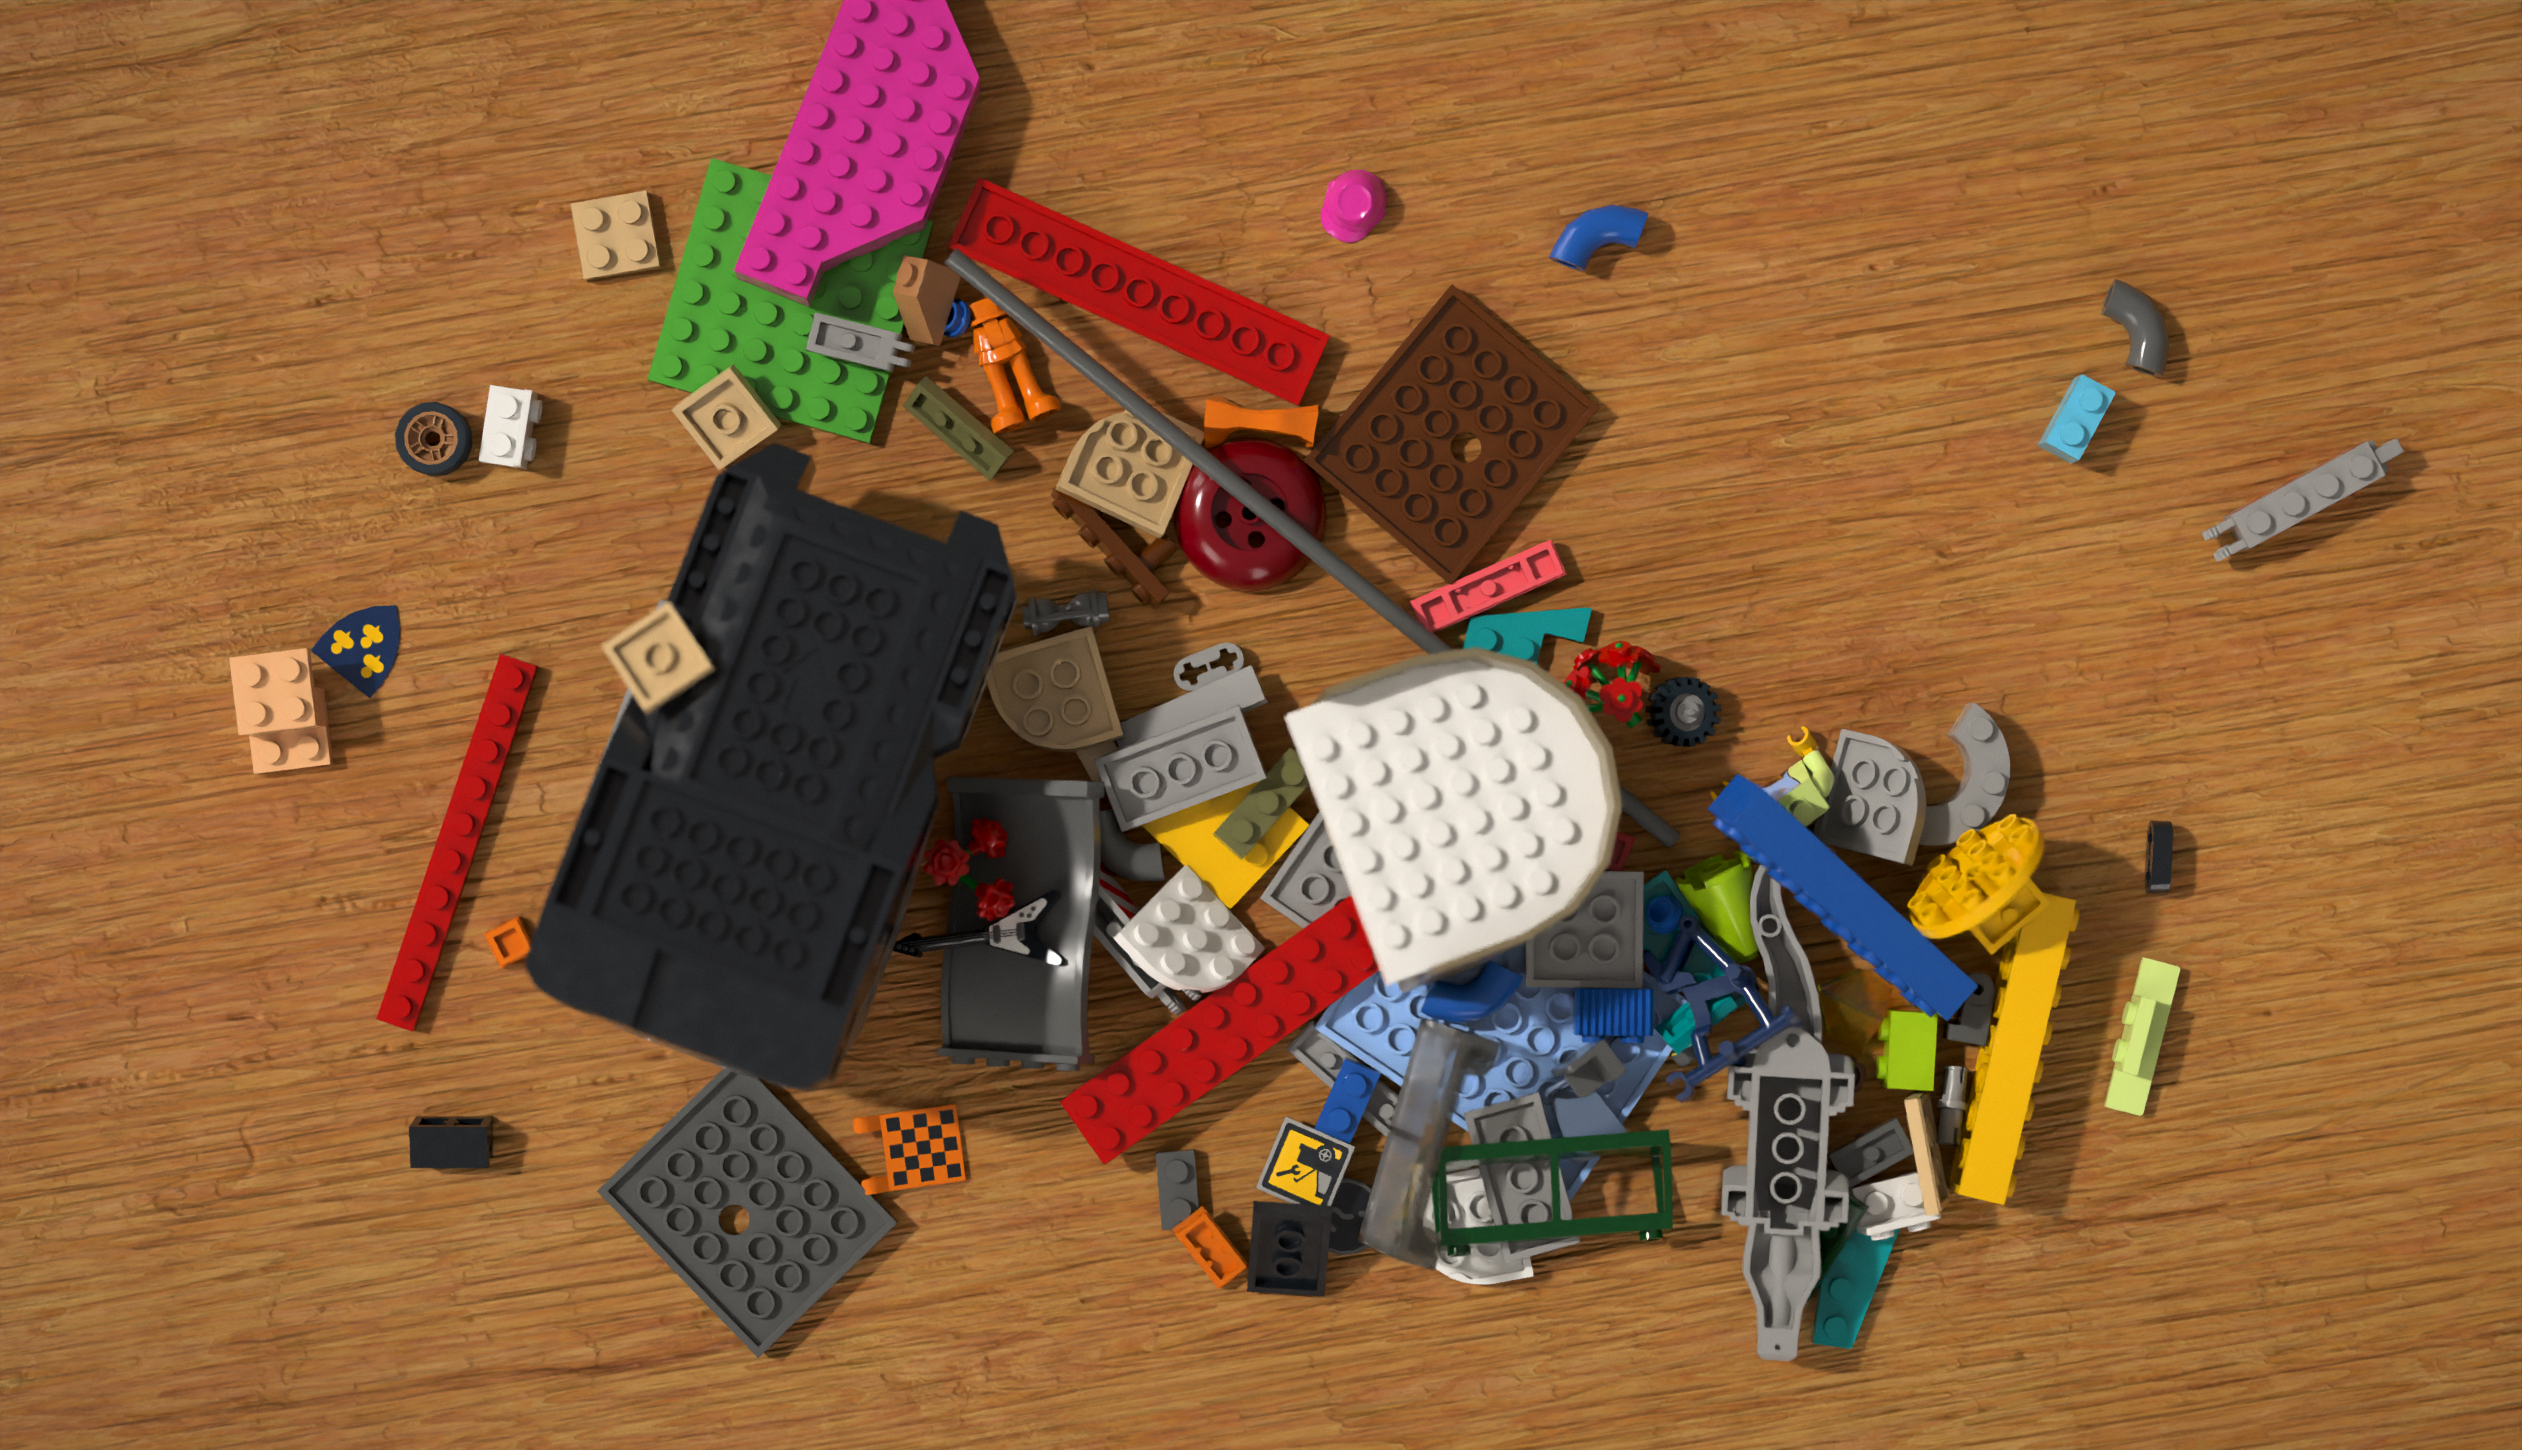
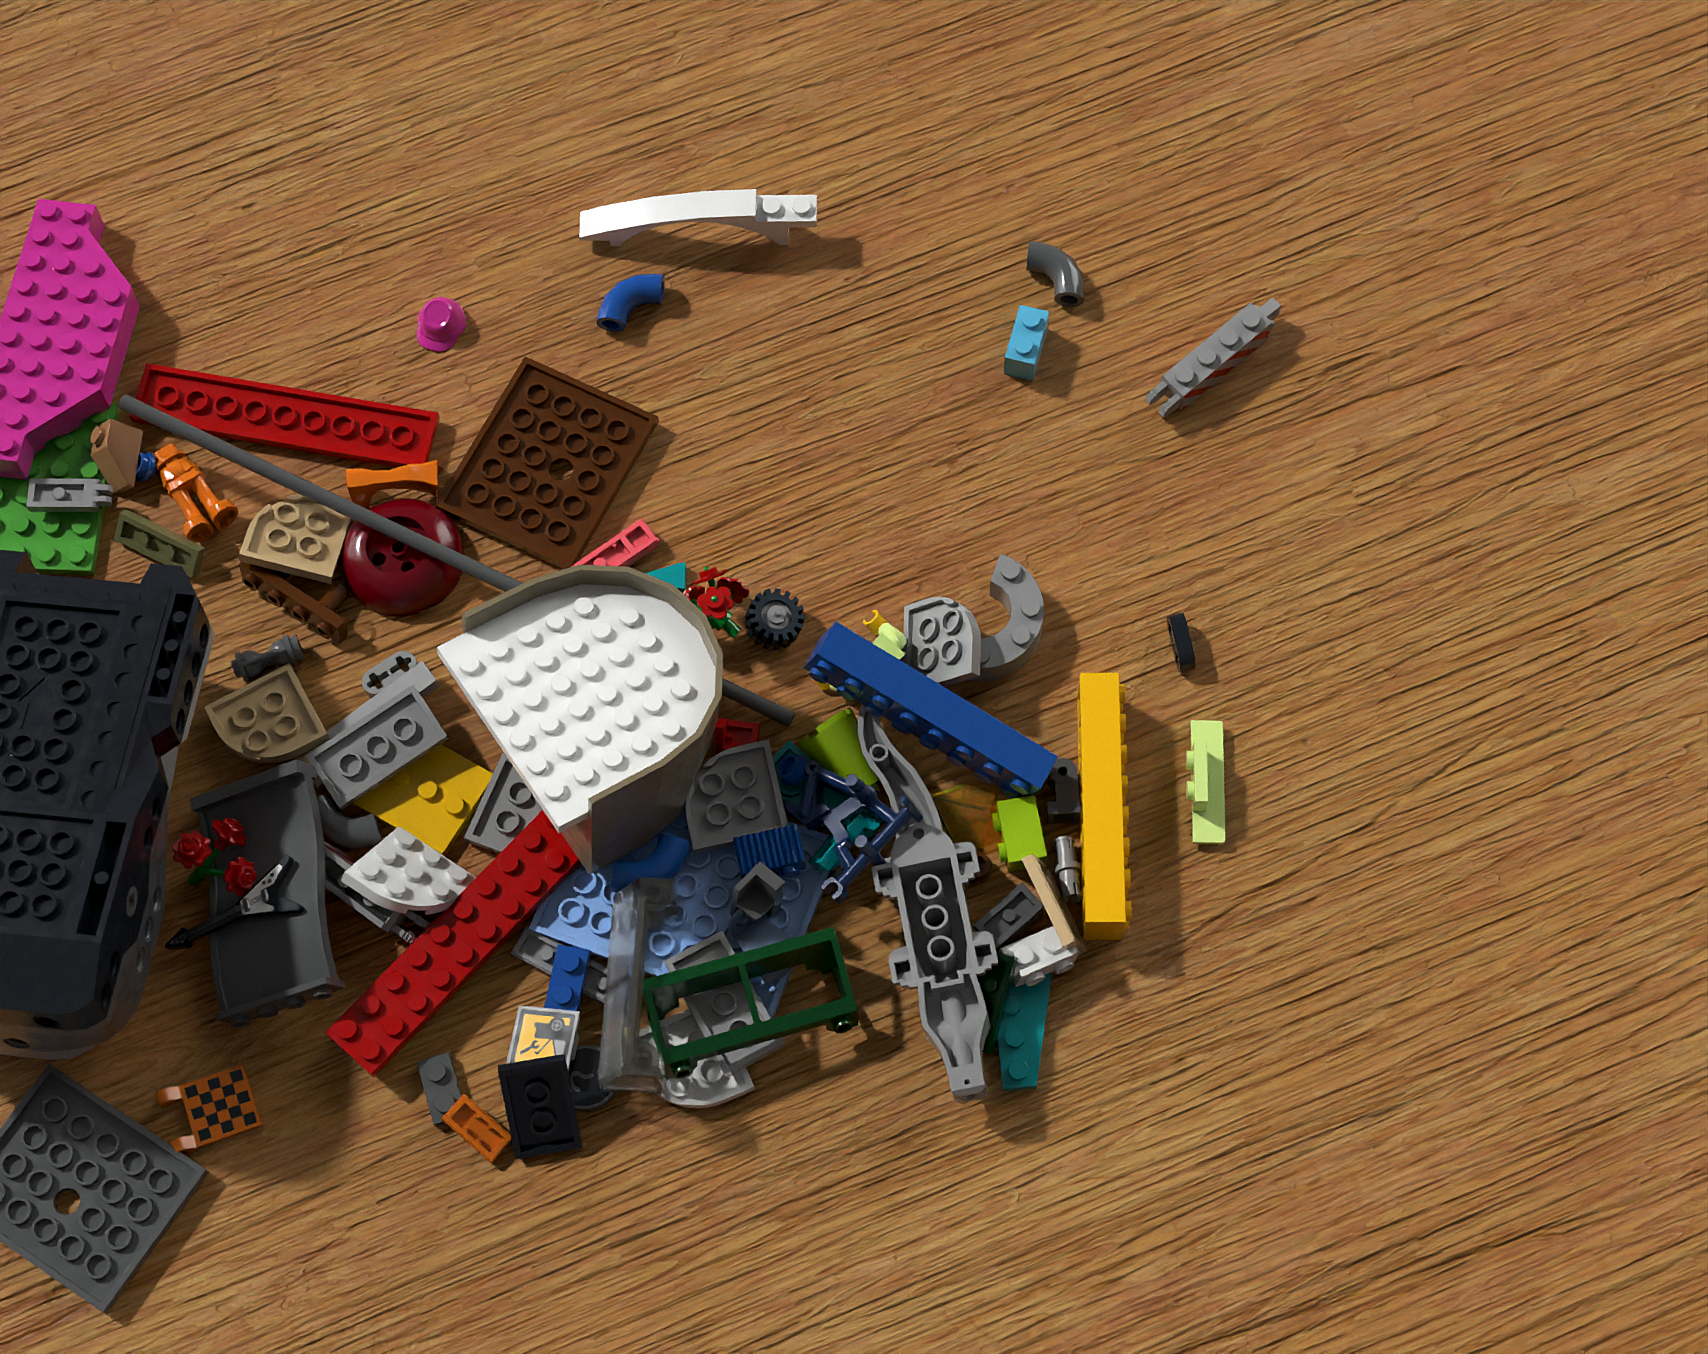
camera: 10 degrees left, 20 degrees down
(1263, 805) = (453, 763): olive plate -> none
(1753, 154) = (741, 208): none -> white slope
(1983, 884) = (1044, 674): yellow bracket -> none

